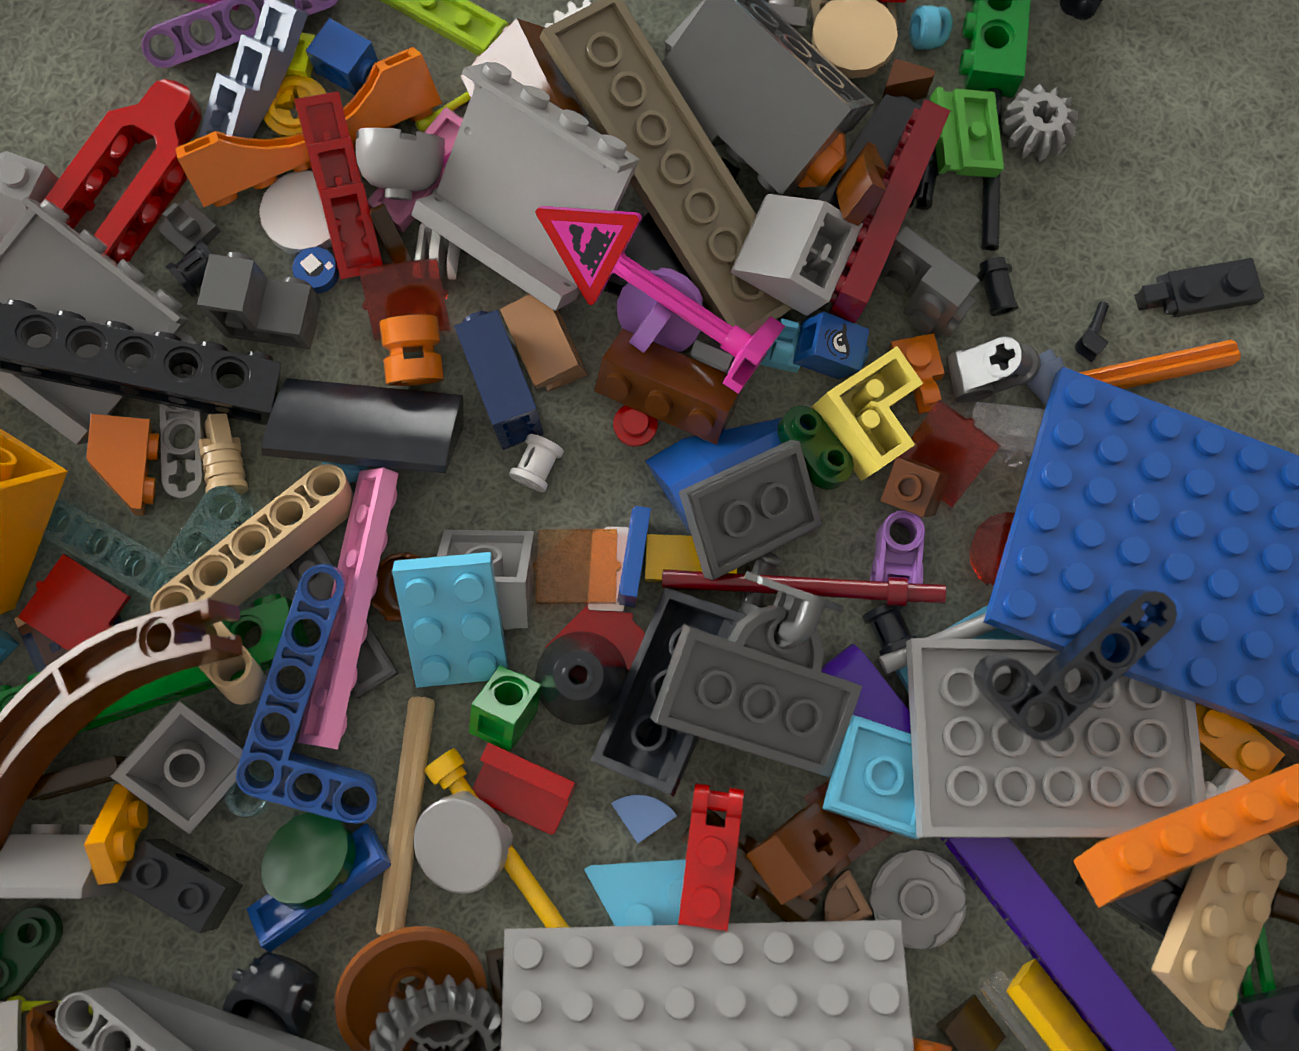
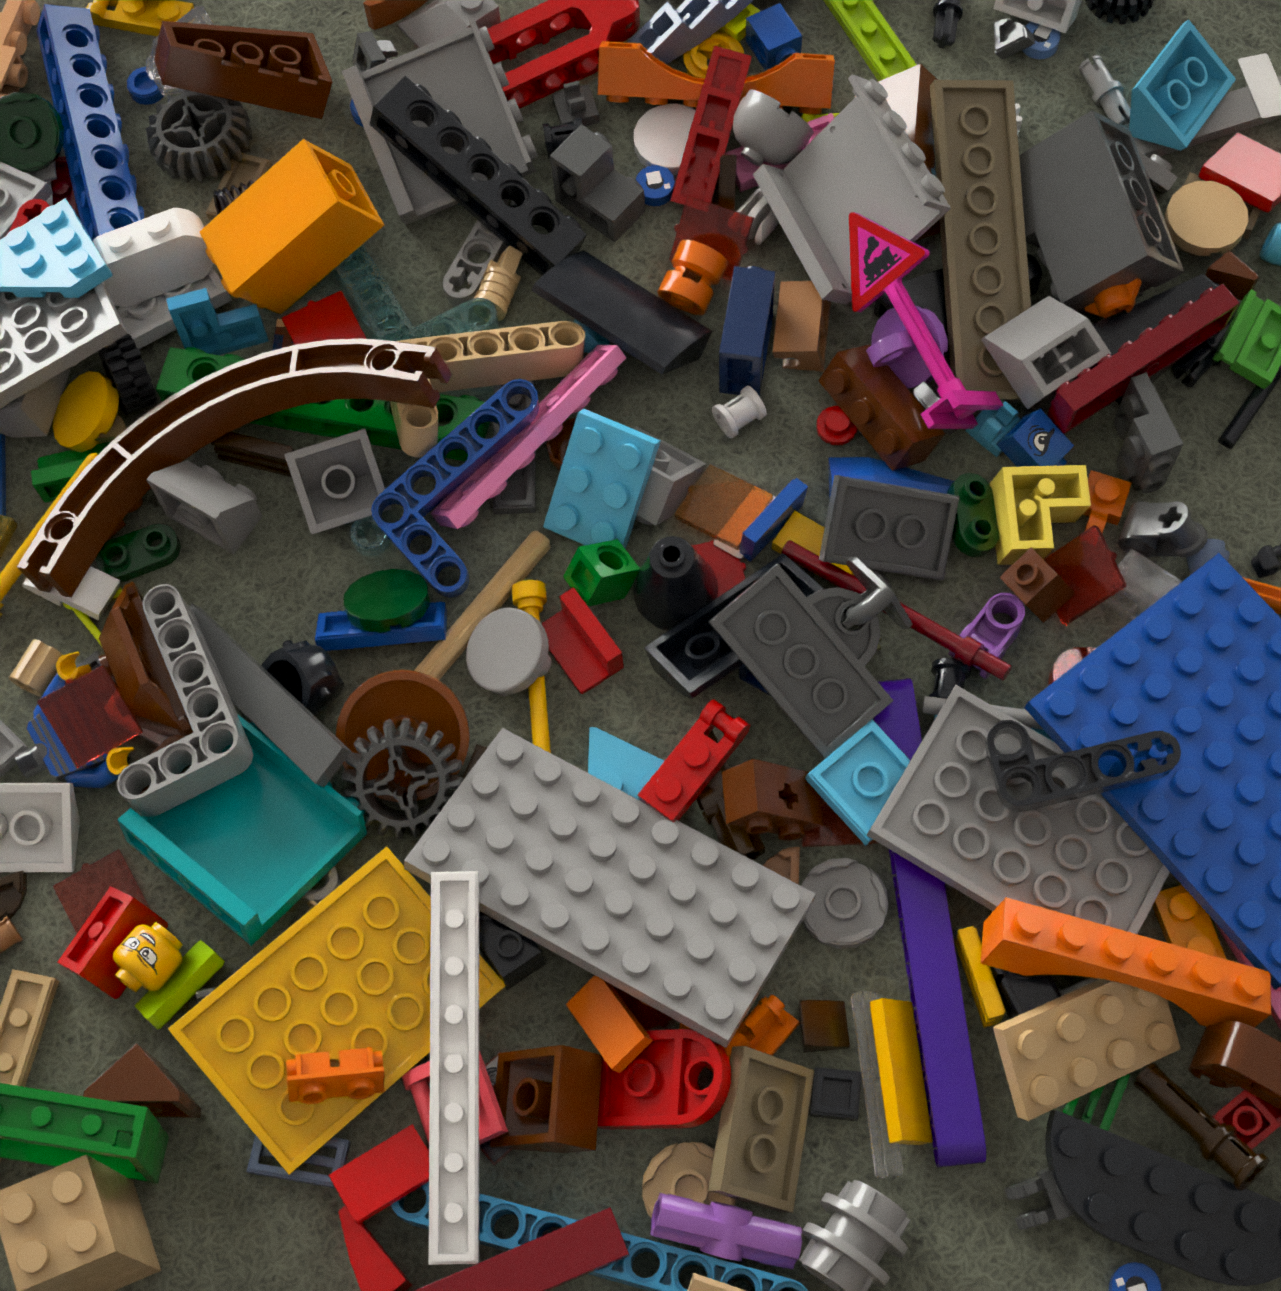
camera: 35 degrees right, 10 degrees down
(115, 834) = (262, 498): light orange plate -> none
(121, 455) = (425, 242): orange slope -> none
(179, 885) = (283, 566): black brick -> none
(643, 814) = (661, 716): medium blue tile -> none
(861, 185) = (1129, 322): reddish brown slope -> none
(998, 285) = (1214, 465): black pin -> none
(1078, 896) = (979, 977): none -> yellow tile

